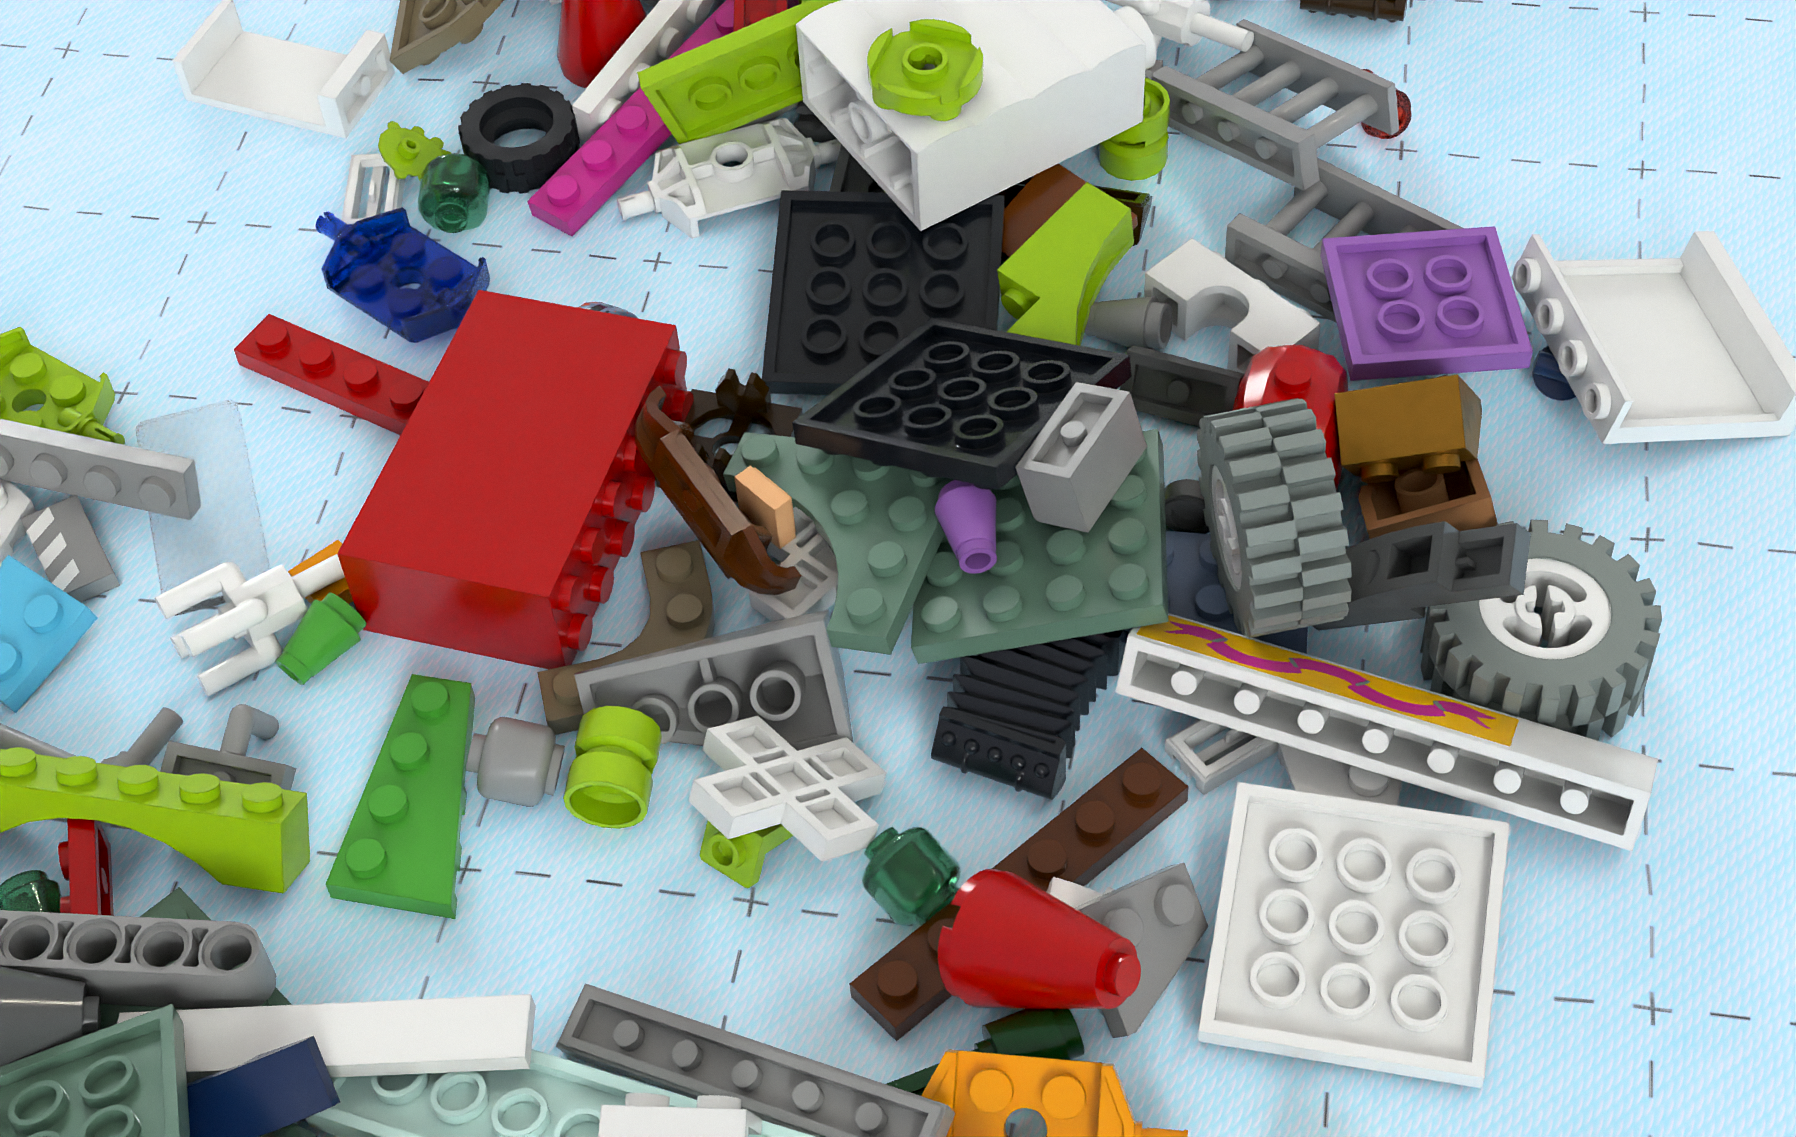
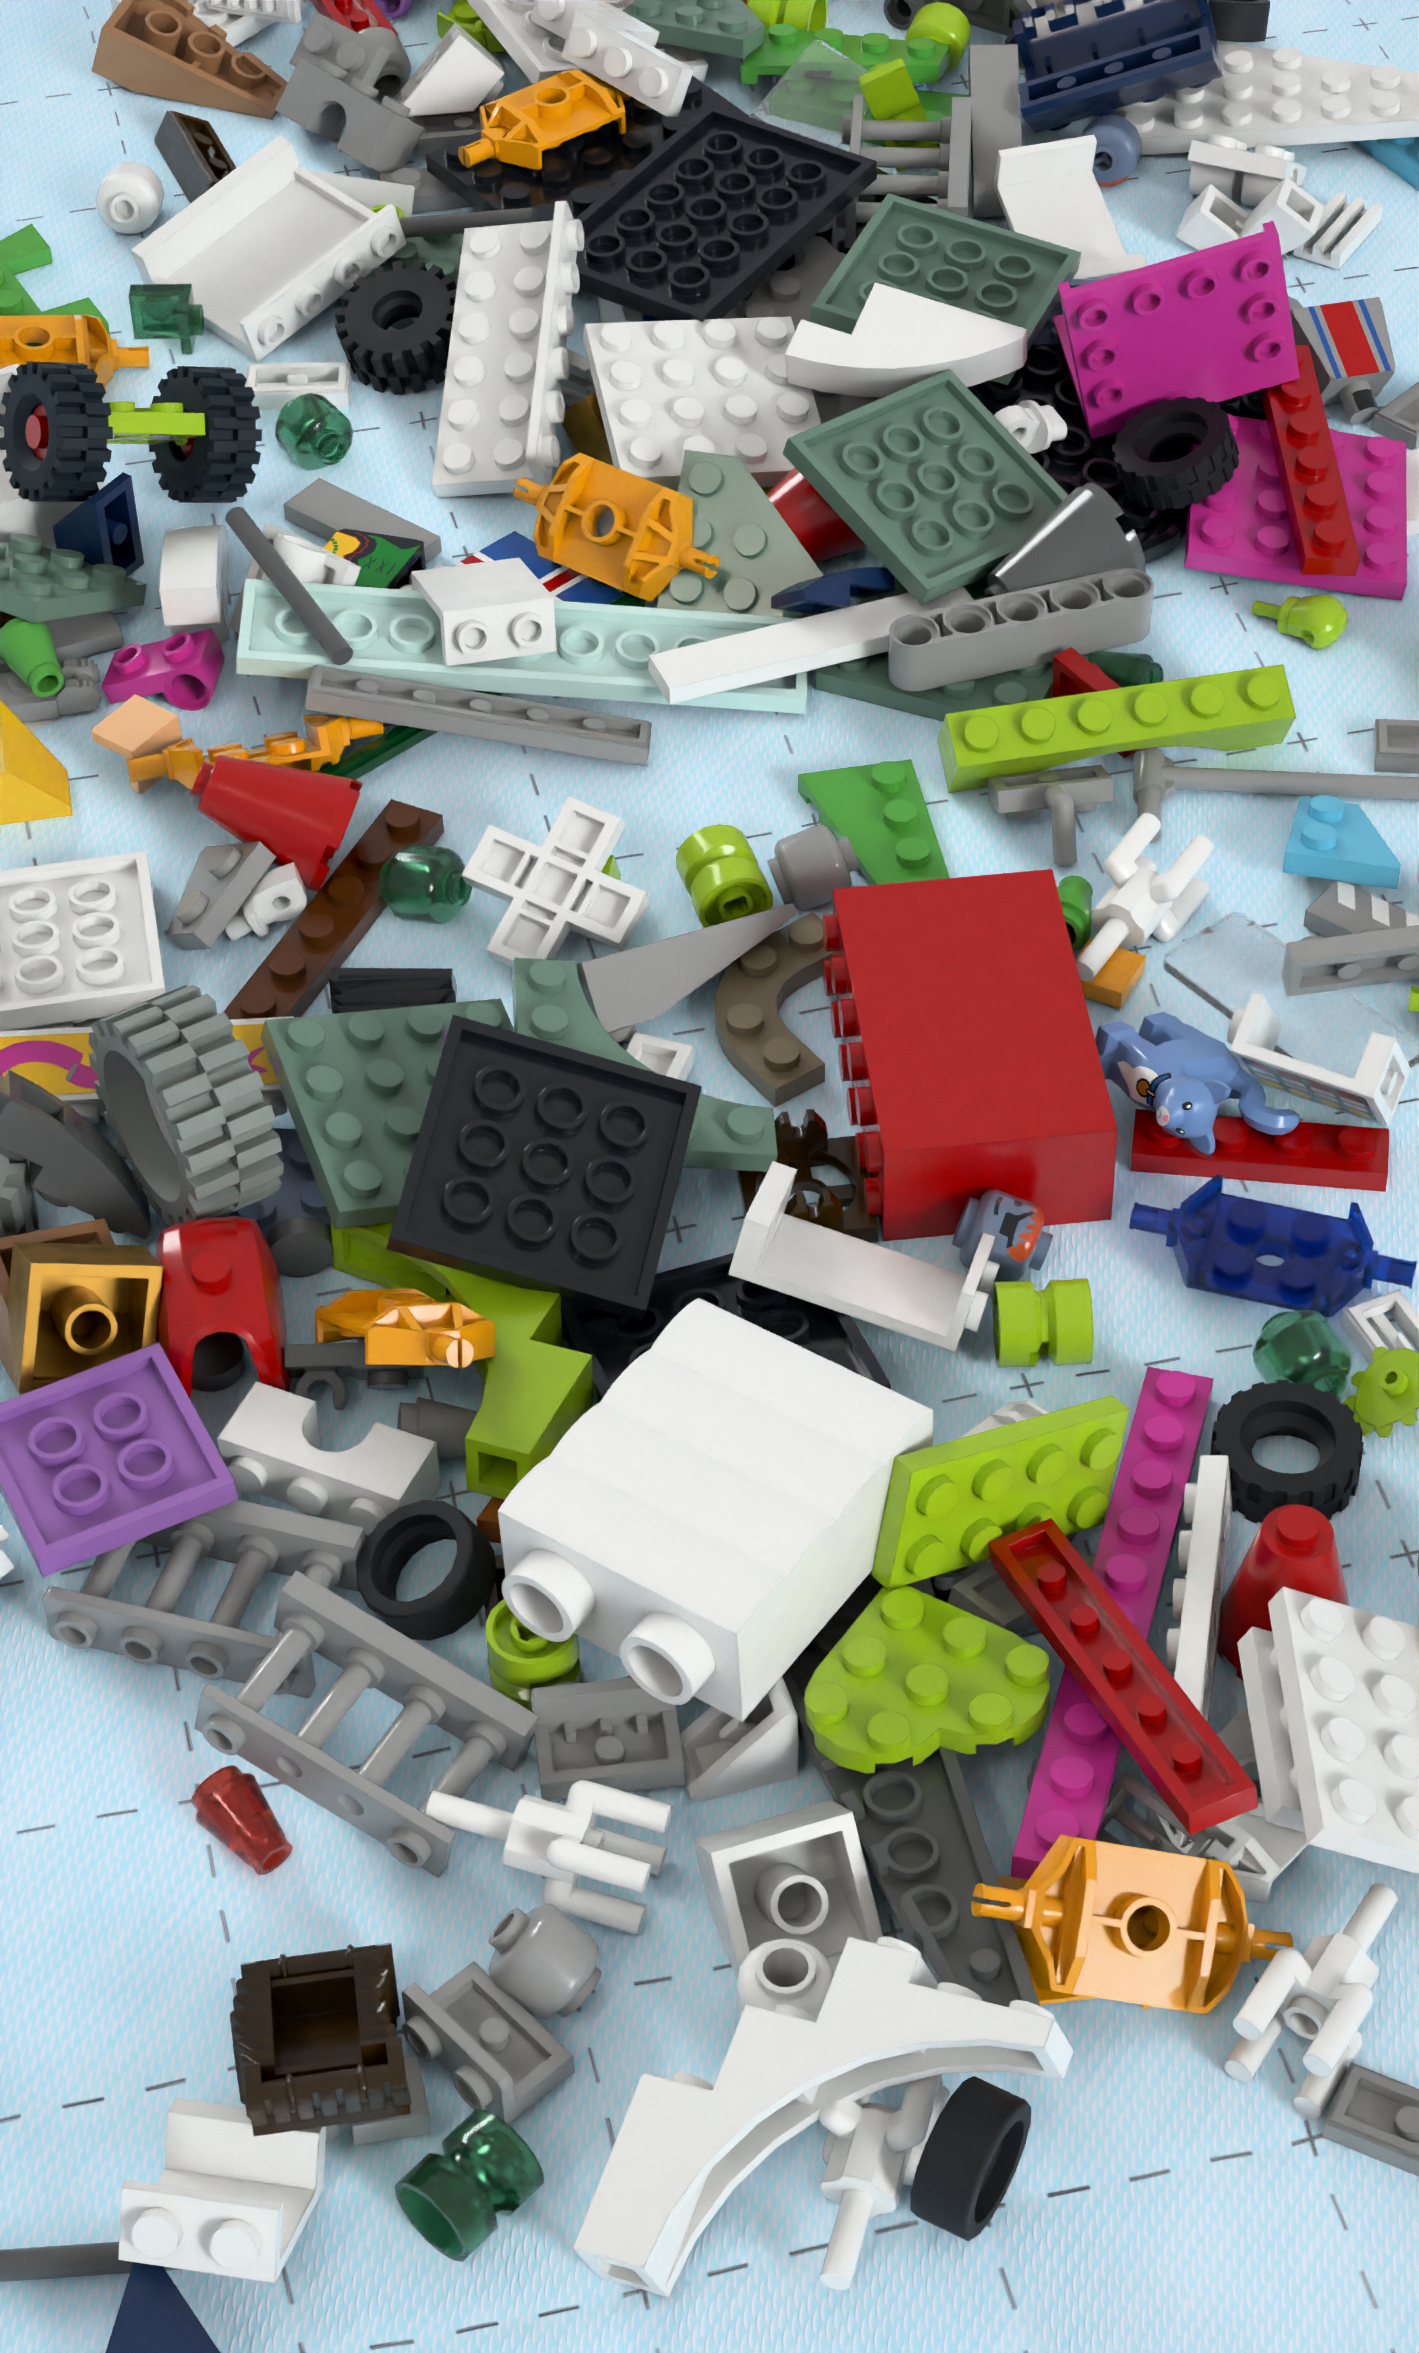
camera: 155 degrees right, 5 degrees down
(258, 360) = (1369, 1095): none -> white panel
(363, 409) = (1184, 1078): none -> medium blue animal
(623, 258) = (1042, 1322): none -> lime wheel
(704, 504) = (757, 1046): reddish brown plate -> none
(738, 309) = (857, 1274): none -> white panel
(766, 505) = (716, 1073): light nougat tile -> none
(901, 85) = (734, 1384): lime plate -> none
(1081, 456) = (390, 1109): light grey panel -> none
(1150, 280) = (406, 1328): none -> light orange plate
(1199, 180) = (394, 1544): none -> black tyre

